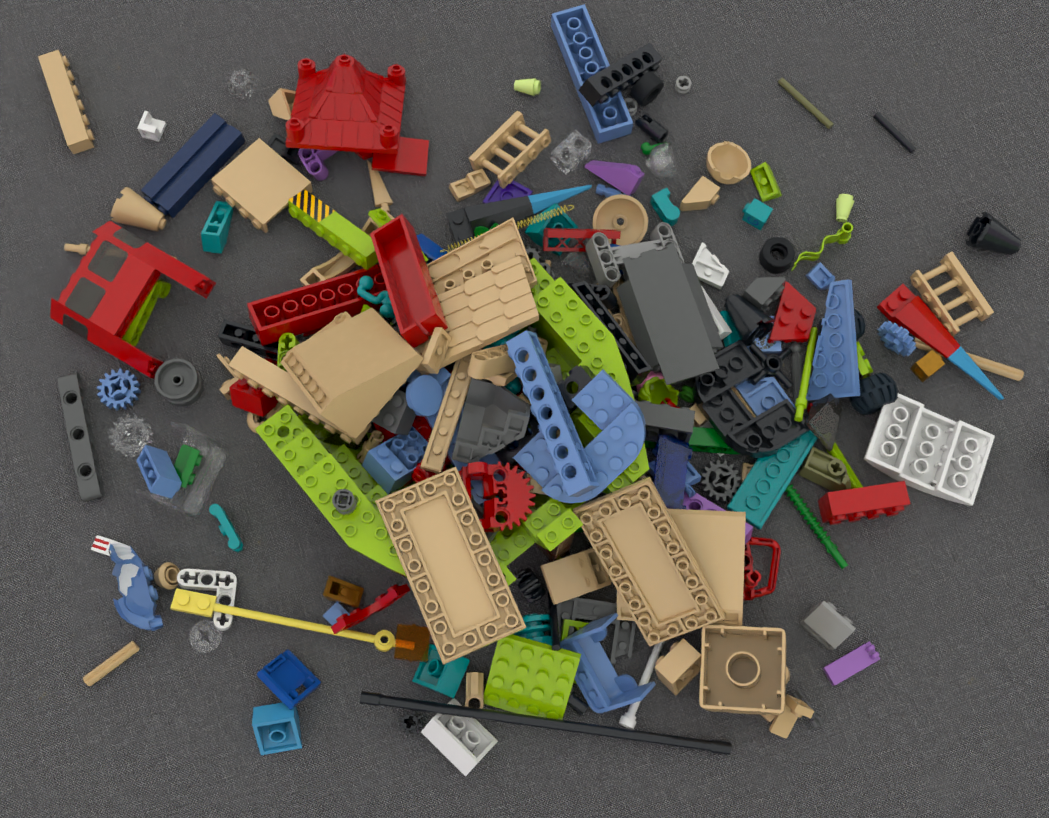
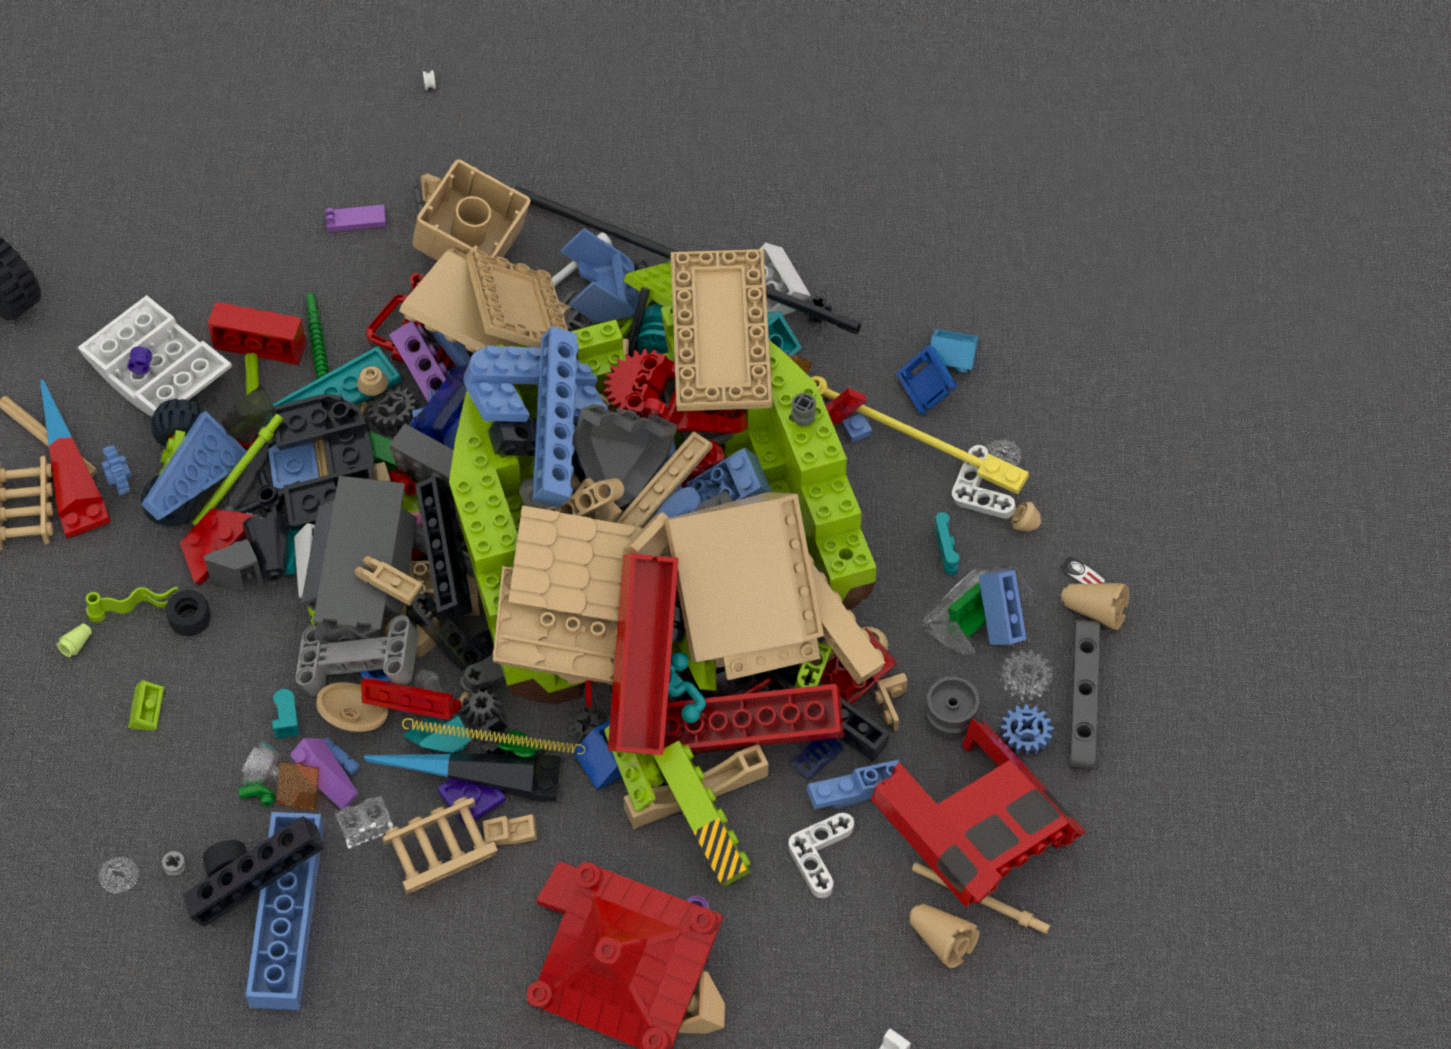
camera: 155 degrees left, 15 degrees down
(87, 516) = (1098, 602): none -> tan cone
(111, 663) = (1109, 462): tan axle -> none
(135, 586) = (1063, 502): medium blue animal -> none
(193, 166) = (852, 976): dark blue brick -> none
(217, 228) = (845, 885): teal slope -> none
(235, 300) = (849, 788): none -> medium blue slope
(252, 249) = (812, 845): none -> white beam
(259, 183) = (772, 912): tan panel -> none
(278, 144) = (727, 963): black slope -> none
(343, 592) = (850, 439): pearl gold slope -> none
(380, 192) = (627, 855): tan bar -> none
(528, 86) = (374, 930): yellowish green cone -> none
(628, 157) = (297, 785): none -> clear orange piece
(633, 293) = (390, 580): none -> tan hinge
(652, 128) = (245, 815): black hinge -> none
(678, 666) = (533, 251): tan brick -> none
(700, 196) = (237, 711): tan slope -> none
(707, 66) = (118, 884): none -> clear gear
(709, 268) = (276, 628): white wing -> none
(728, 163) = (181, 730): tan cylinder -> none
(745, 487) = (372, 381): none -> tan cone
(756, 213) = (181, 666): teal brick -> none
(802, 100) = (34, 786): olive bar -> none
(820, 277) = (152, 569): medium blue plate -> none
(825, 470) = (274, 377): olive piece -> none
(827, 625) = (361, 247): light grey slope -> none
(927, 365) = (95, 439): pearl gold brick -> none
(938, 436) = (140, 360): none -> dark purple wheel

